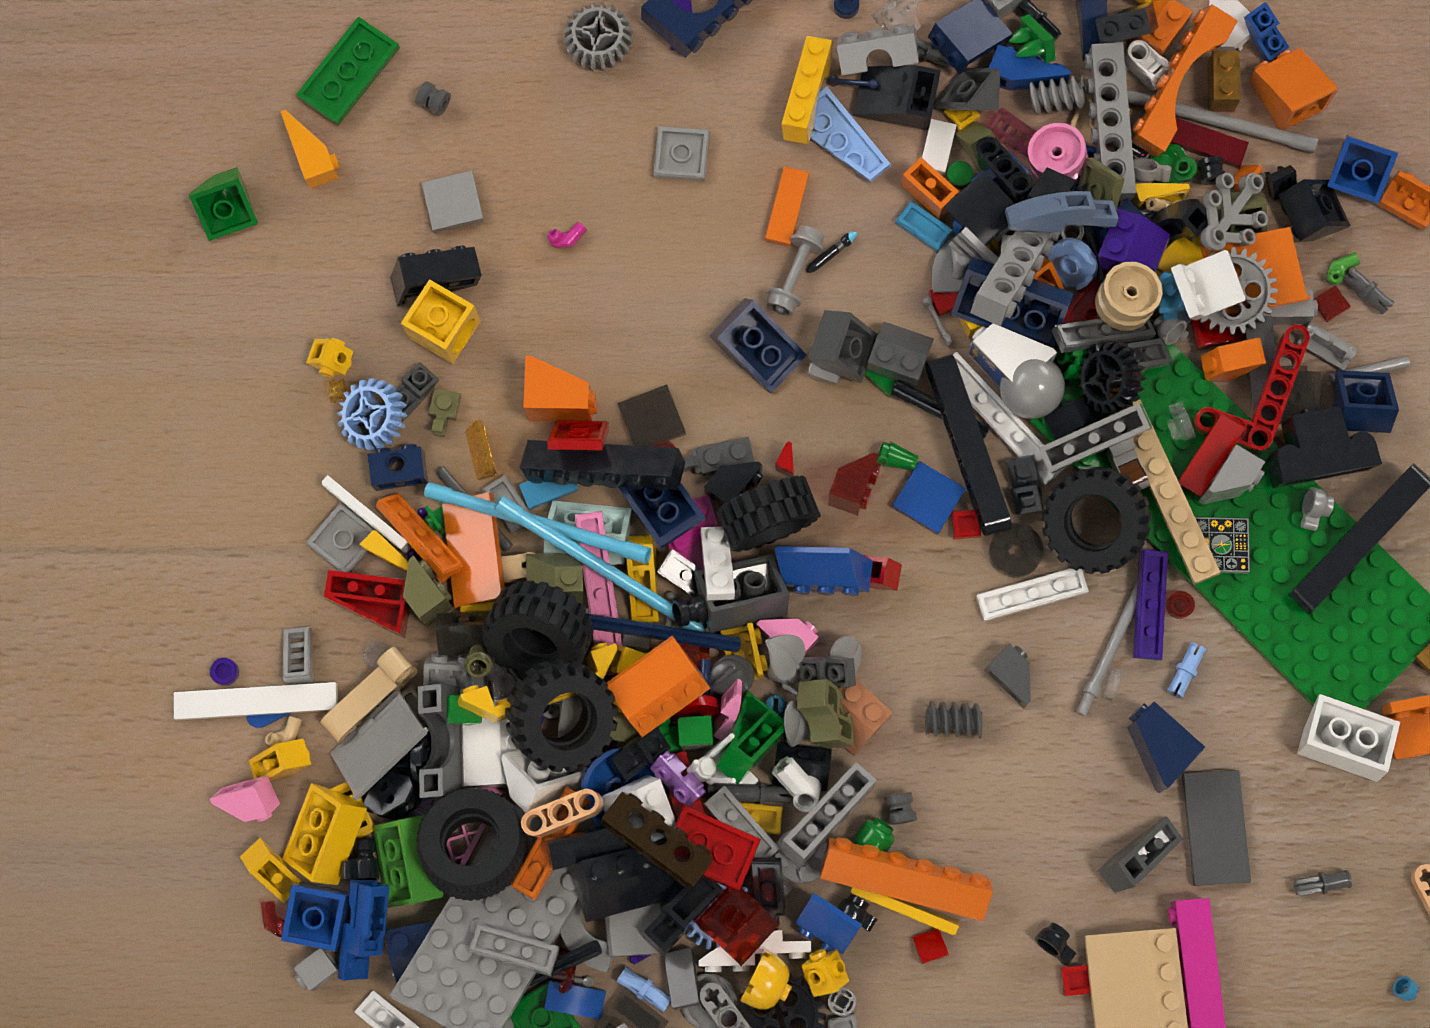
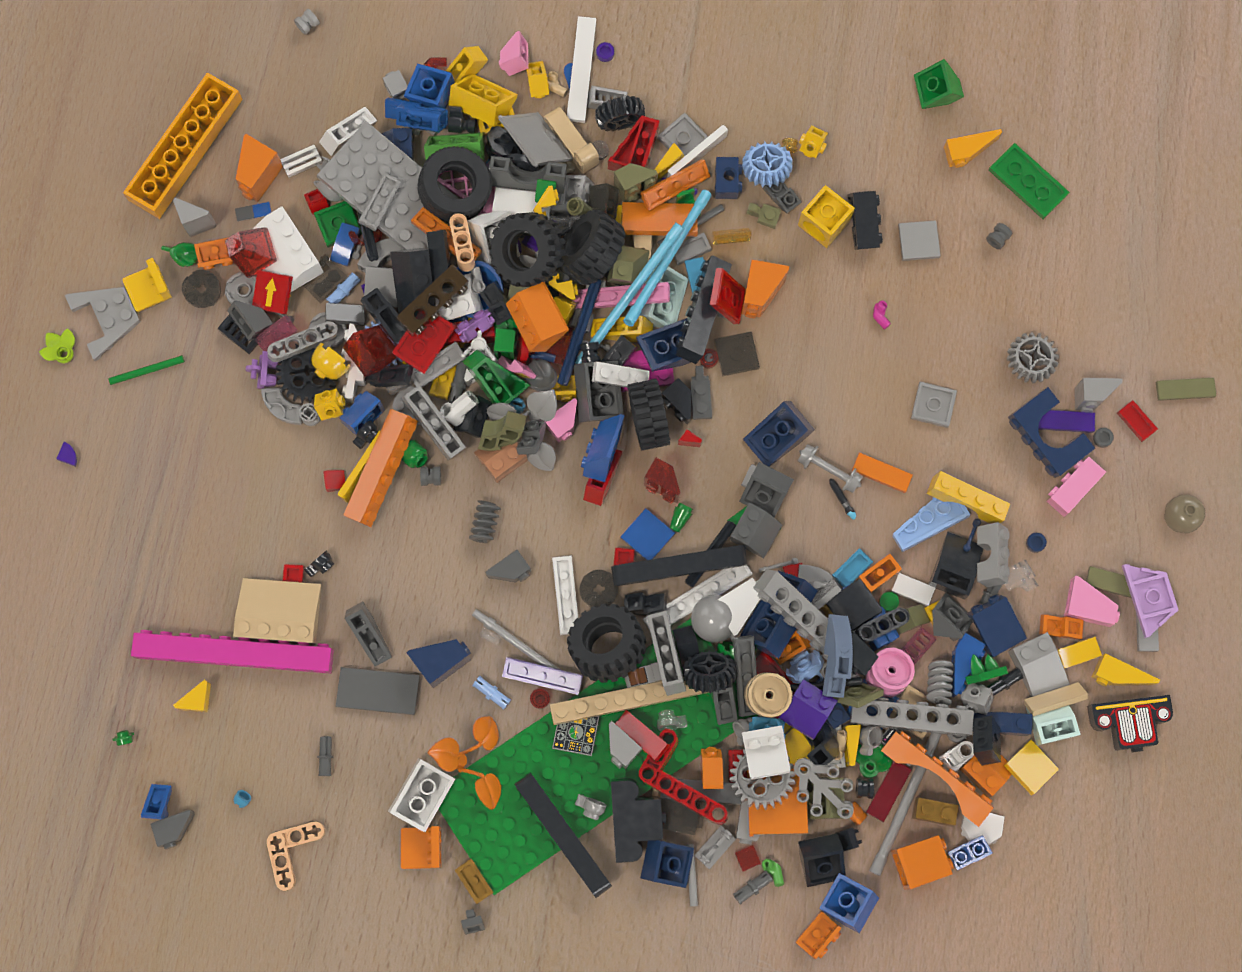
camera: 90 degrees right, 0 degrees up
(322, 629) = (619, 113): none -> black gear
(617, 784) = (477, 281): none -> light grey arm
(1078, 47) = (977, 698): none -> light grey brick
(1293, 701) = (449, 758): none -> orange plant

